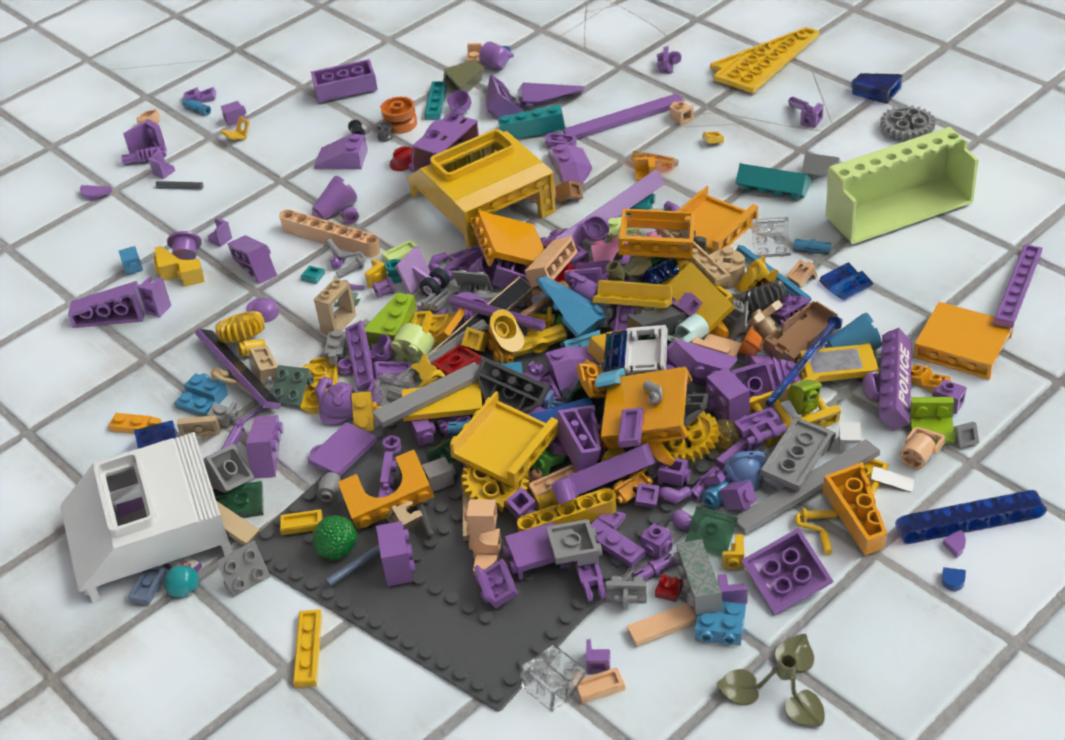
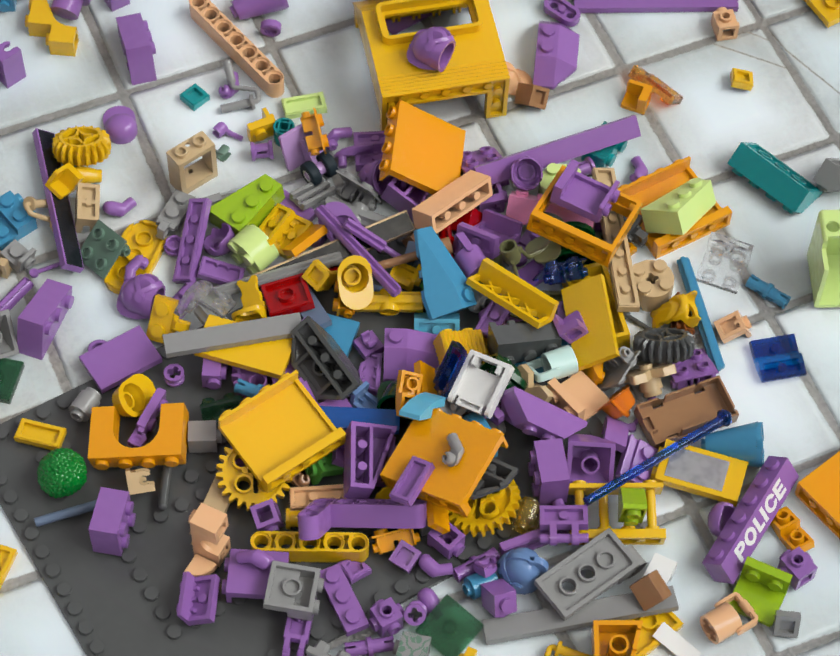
camera: 15 degrees right, 15 degrees up
(237, 351) = (64, 181): none -> yellow panel
(289, 359) = (119, 209): none -> medium lavender arm
(367, 467) = (133, 395): none -> yellow piece
(420, 247) = (313, 124): none -> light orange hinge
(486, 168) = (431, 48): none -> medium lavender helmet
(499, 302) = (368, 237): none -> medium lavender axle
(530, 530) = (256, 557): none -> medium lavender arm
(650, 218) = (584, 194): none -> medium lavender panel
(679, 522) = (410, 618): none -> medium lavender bush
(719, 215) = (679, 208): none -> yellowish green wedge
(852, 445) = (650, 590): none -> medium nougat panel

